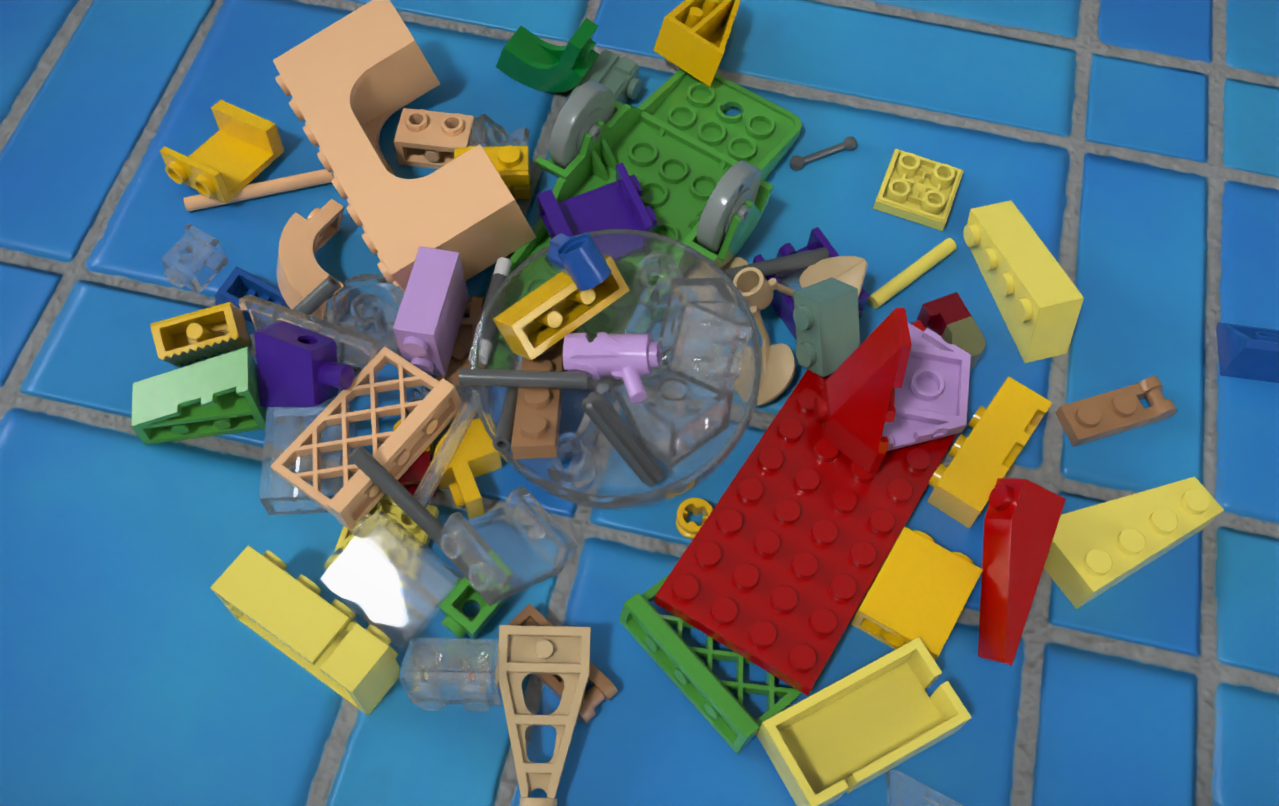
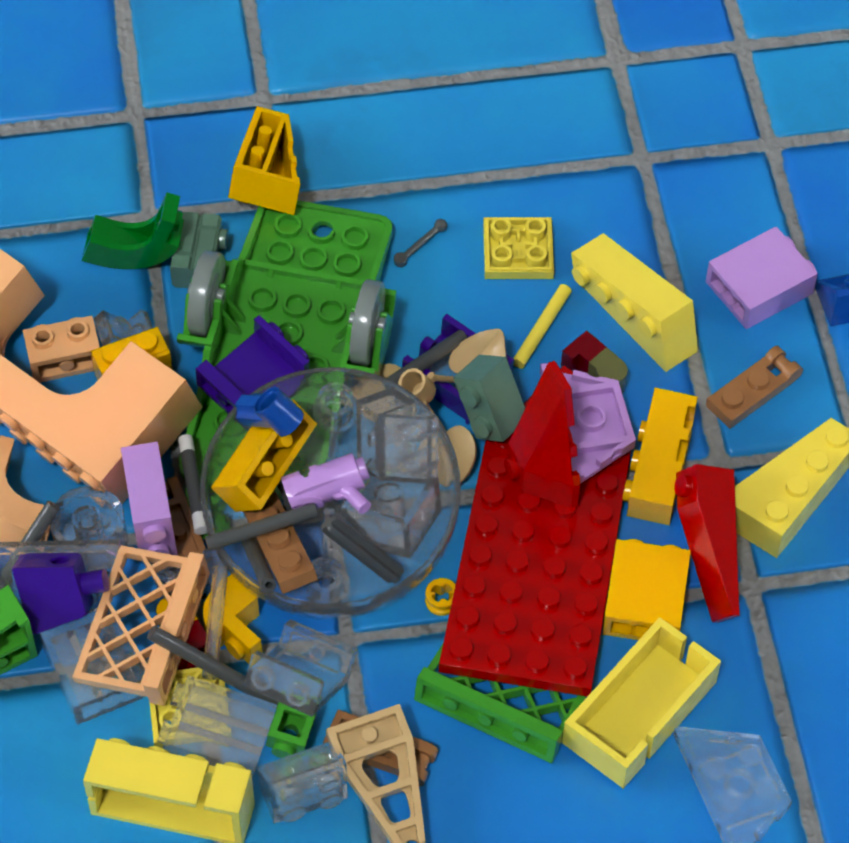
camera: 20 degrees left, 5 degrees down
(1163, 299) = (761, 277): none -> lavender brick

